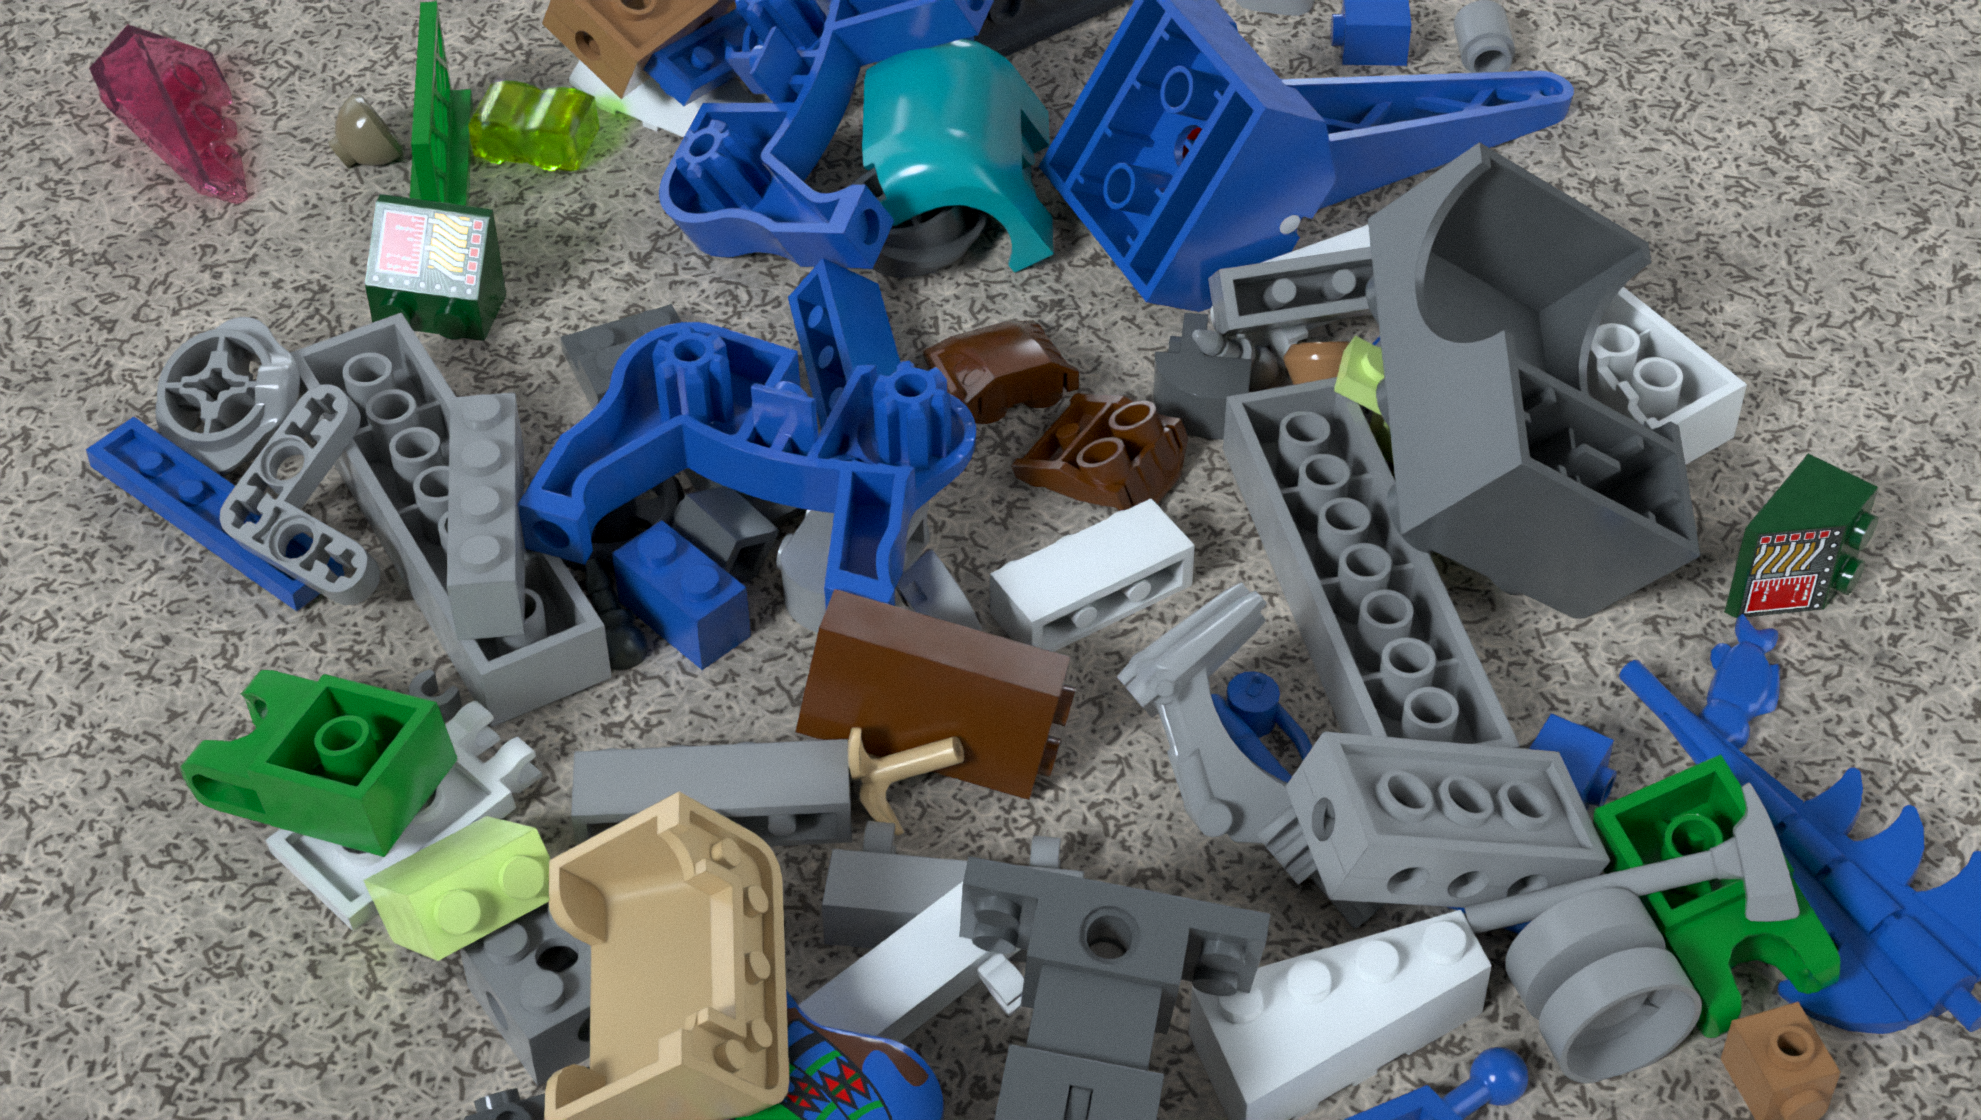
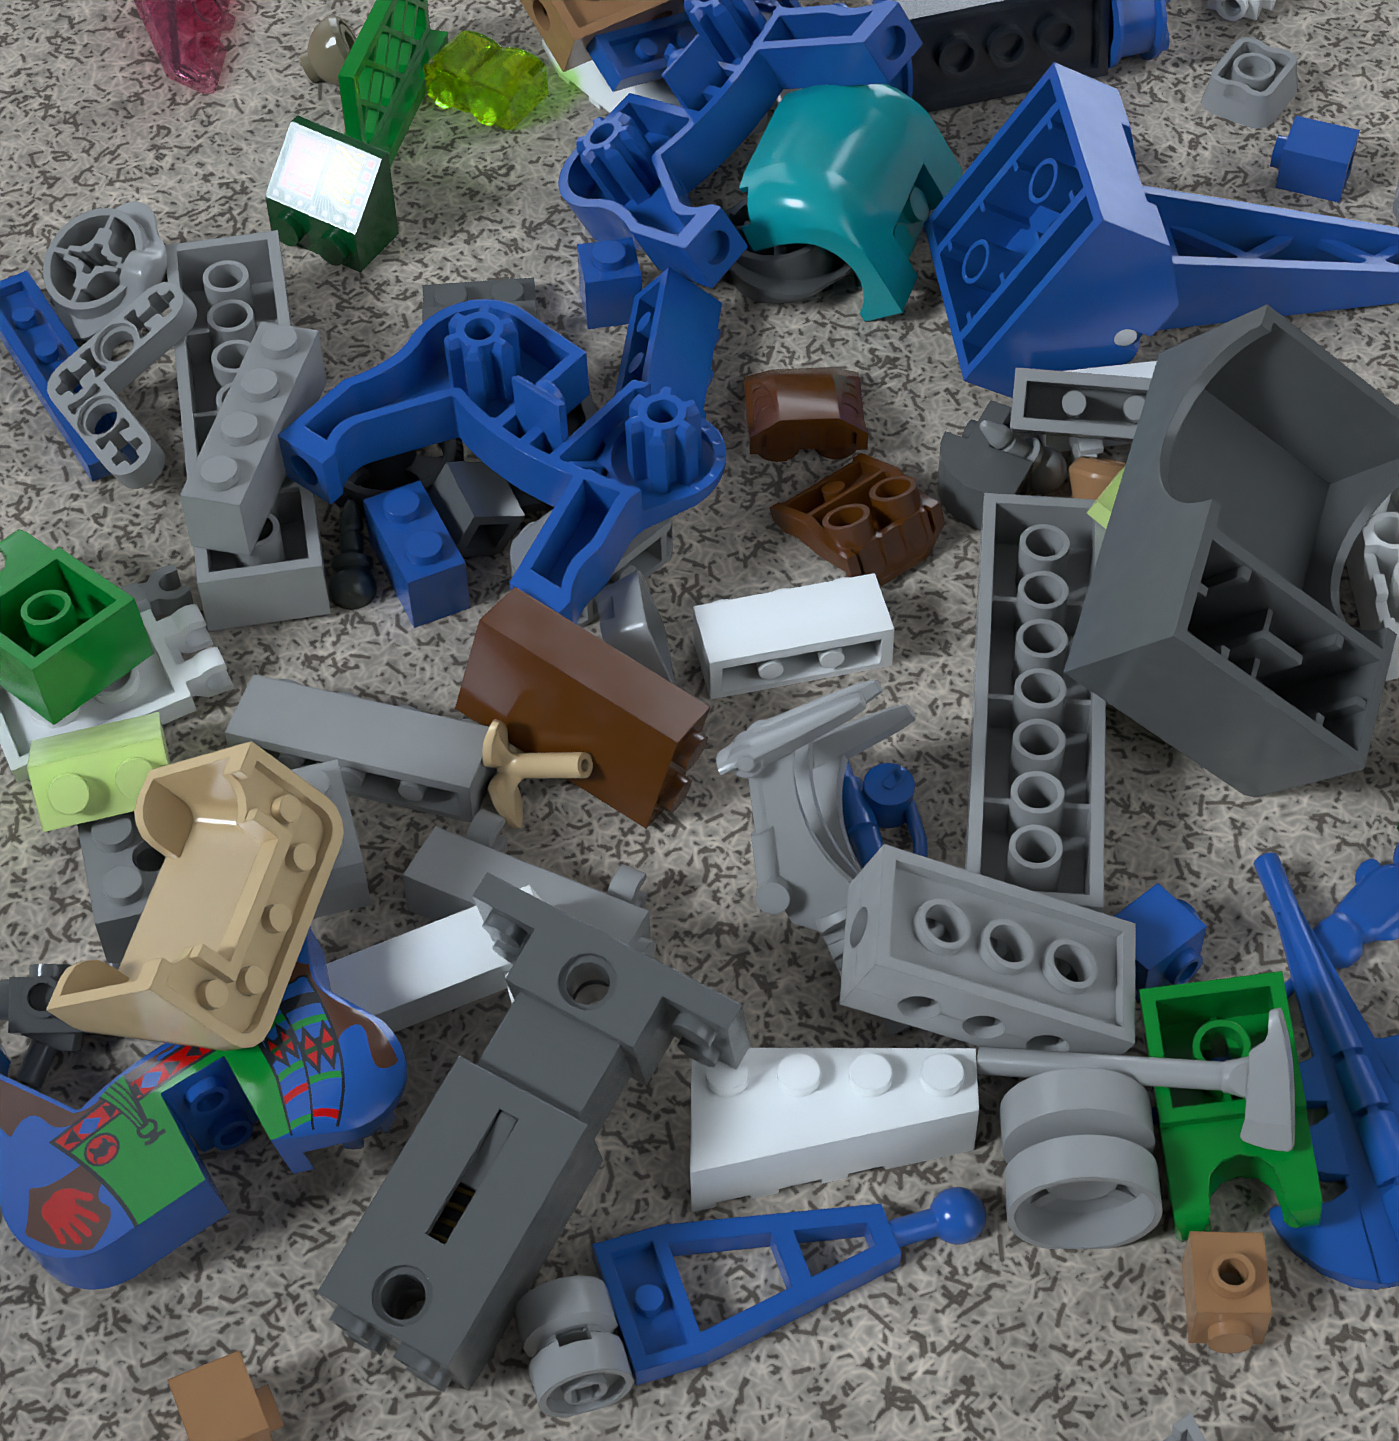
camera: 20 degrees right, 5 degrees up
(754, 289) = (608, 281): none -> blue brick

